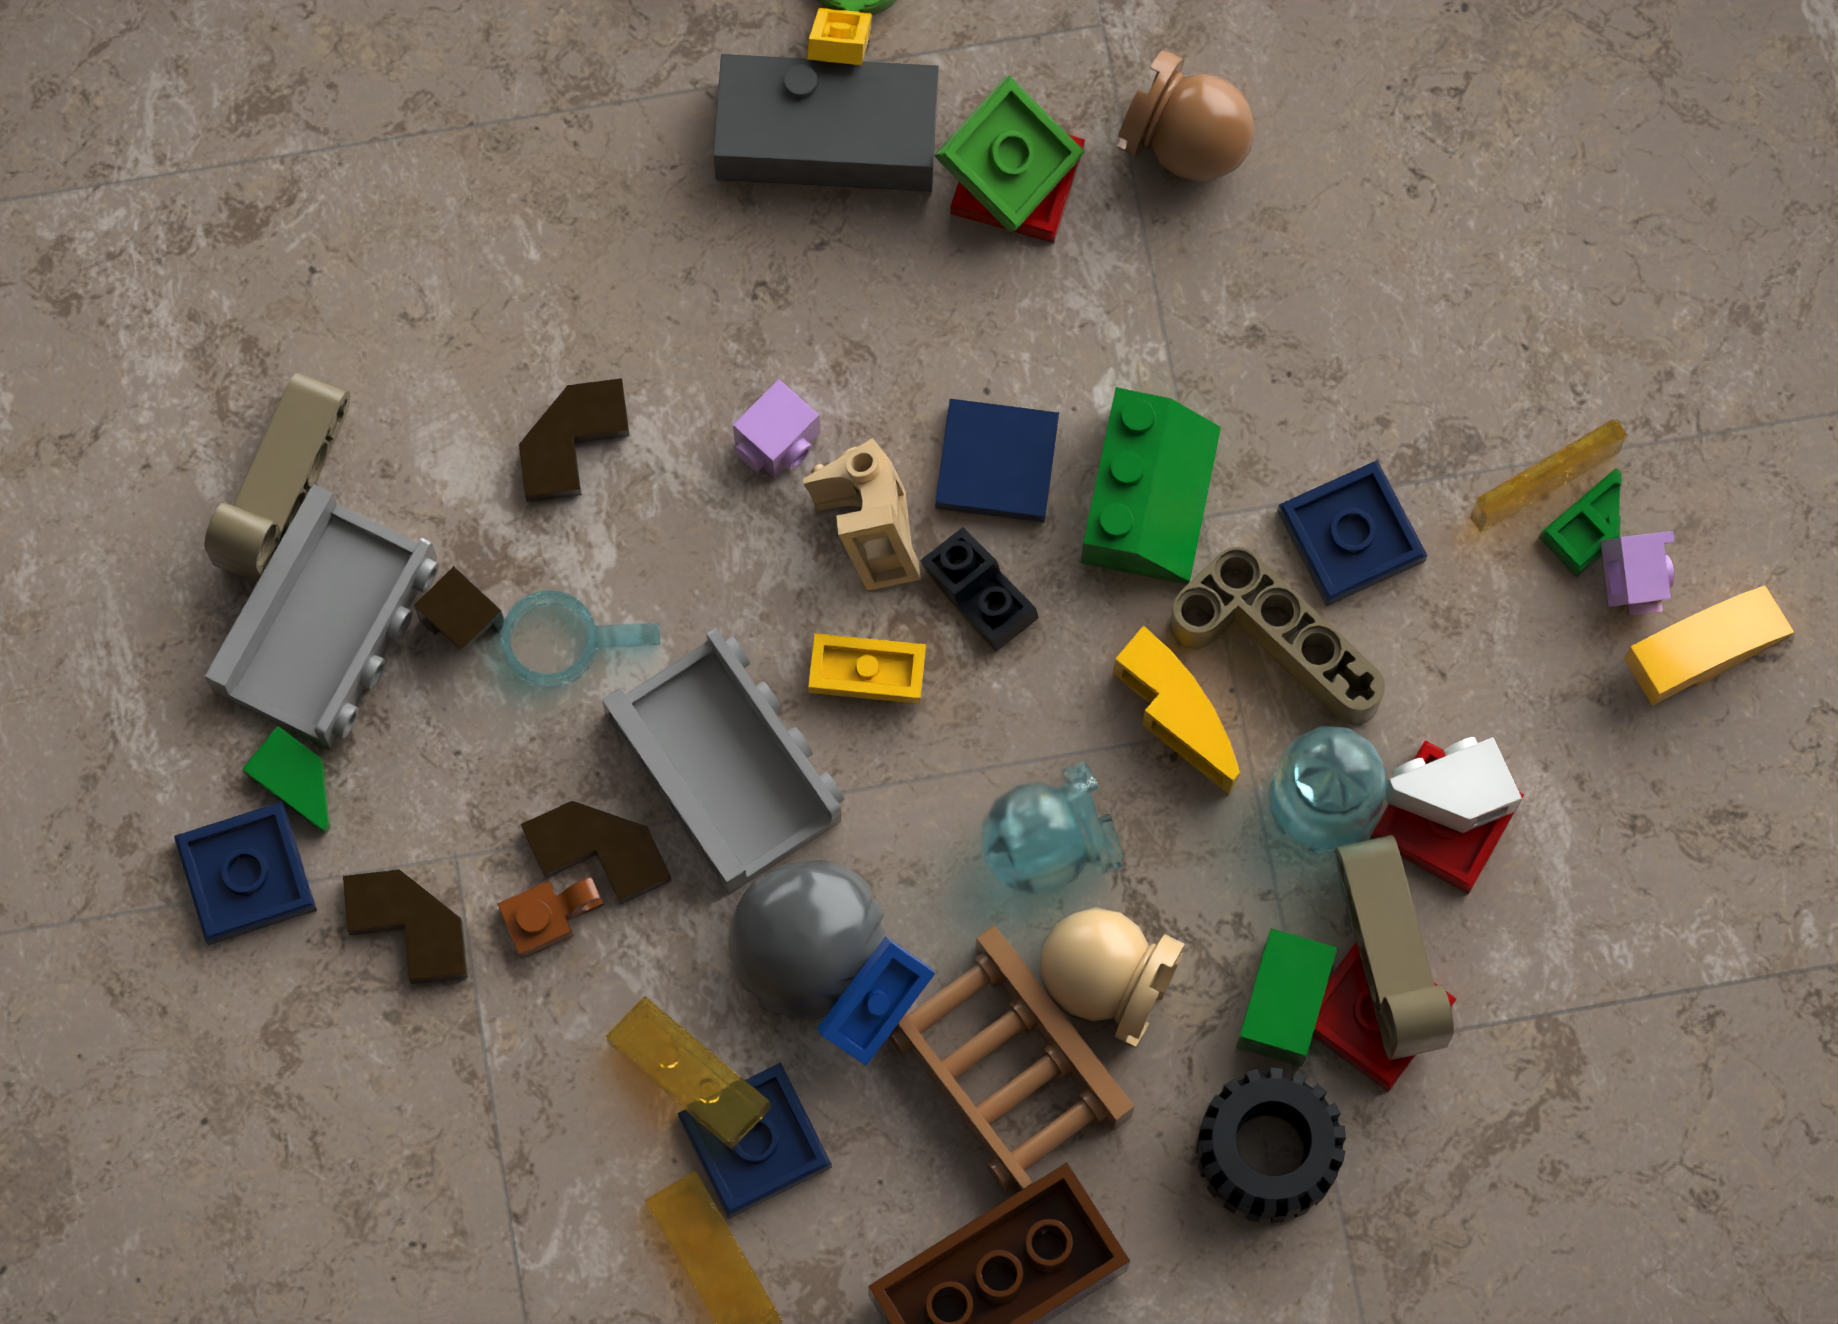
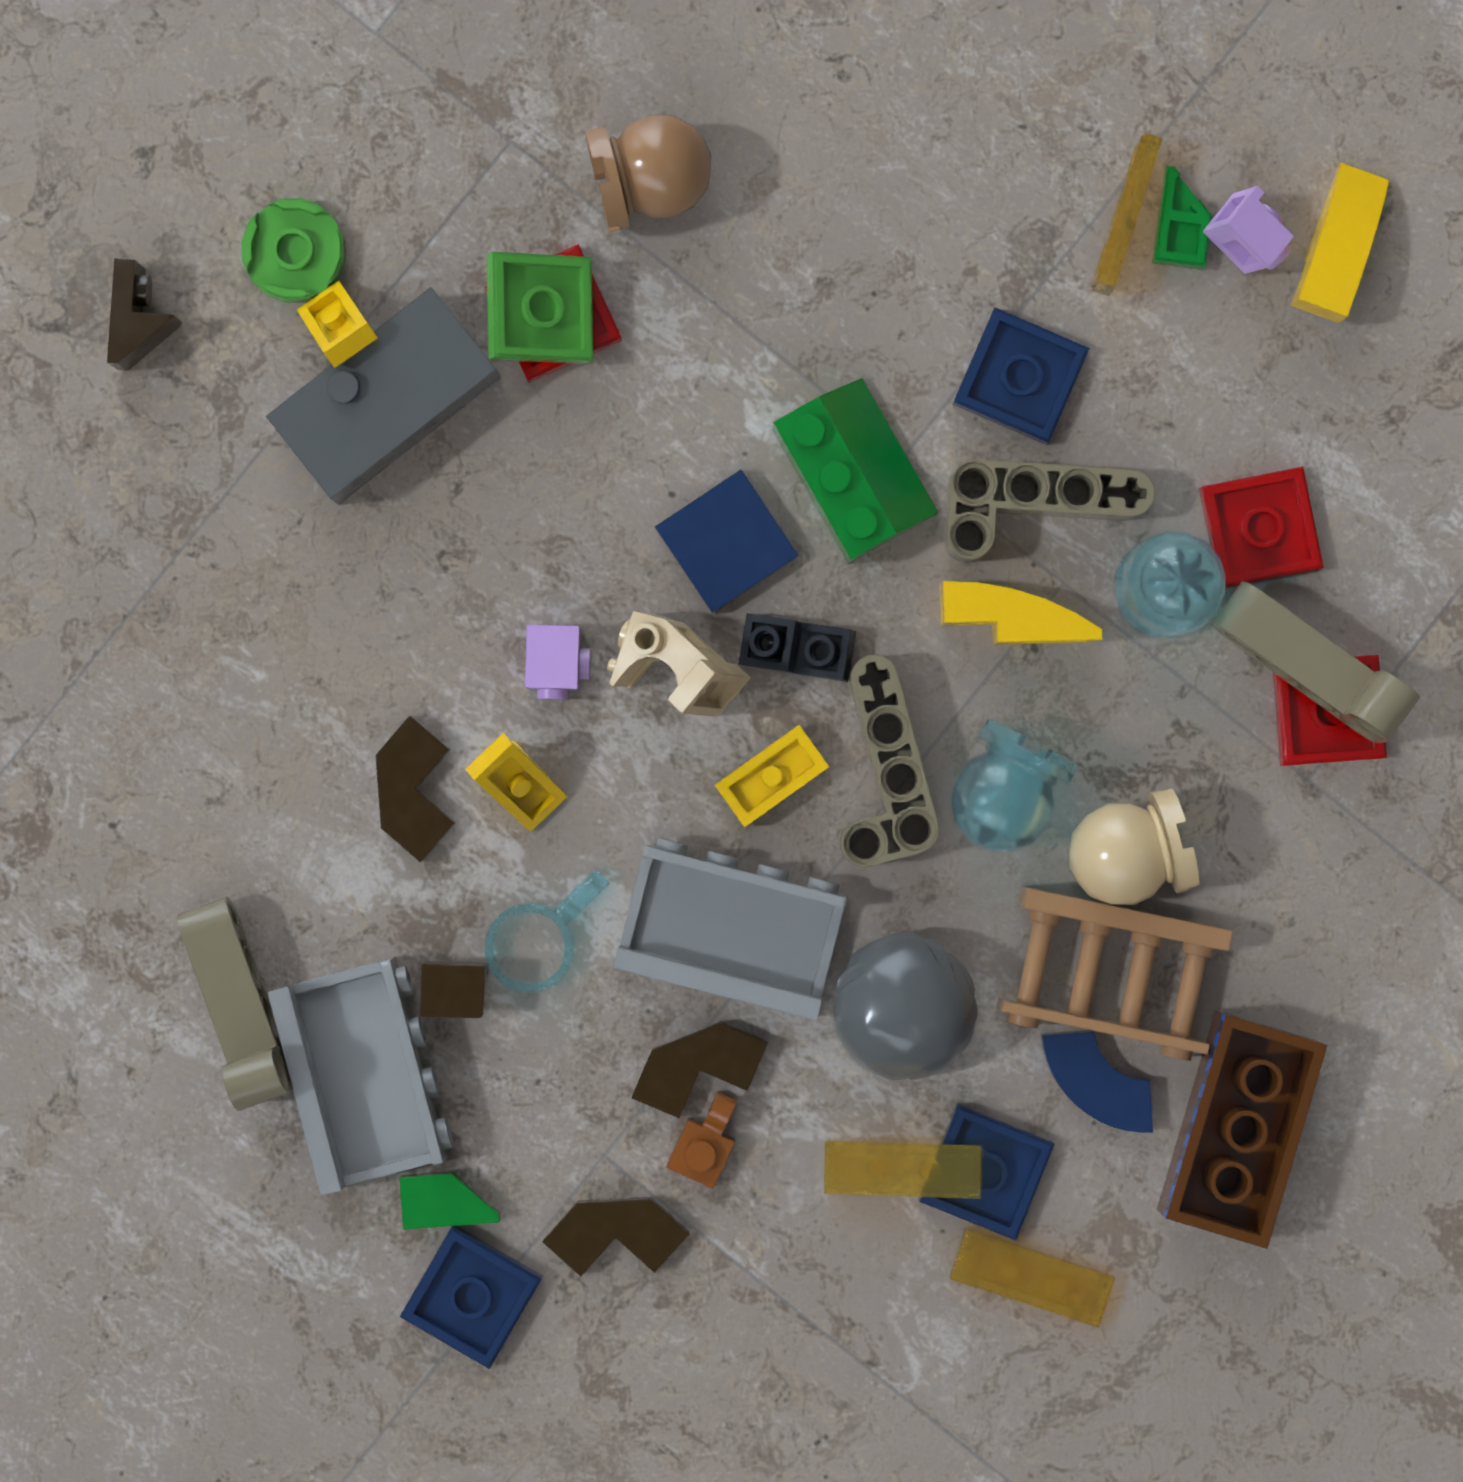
camera: 40 degrees left, 15 degrees up
(658, 495) = (516, 782): none -> yellow slope
(875, 1001) = (998, 1018): blue plate -> none
(909, 1146) = (1094, 1084): none -> dark blue tile
(970, 731) = (882, 758): none -> dark tan beam
(1278, 1097) = (1387, 882): black tyre -> none
(1286, 997) = (1264, 758): green panel -> none
(1458, 789) = (1265, 504): white slope -> none

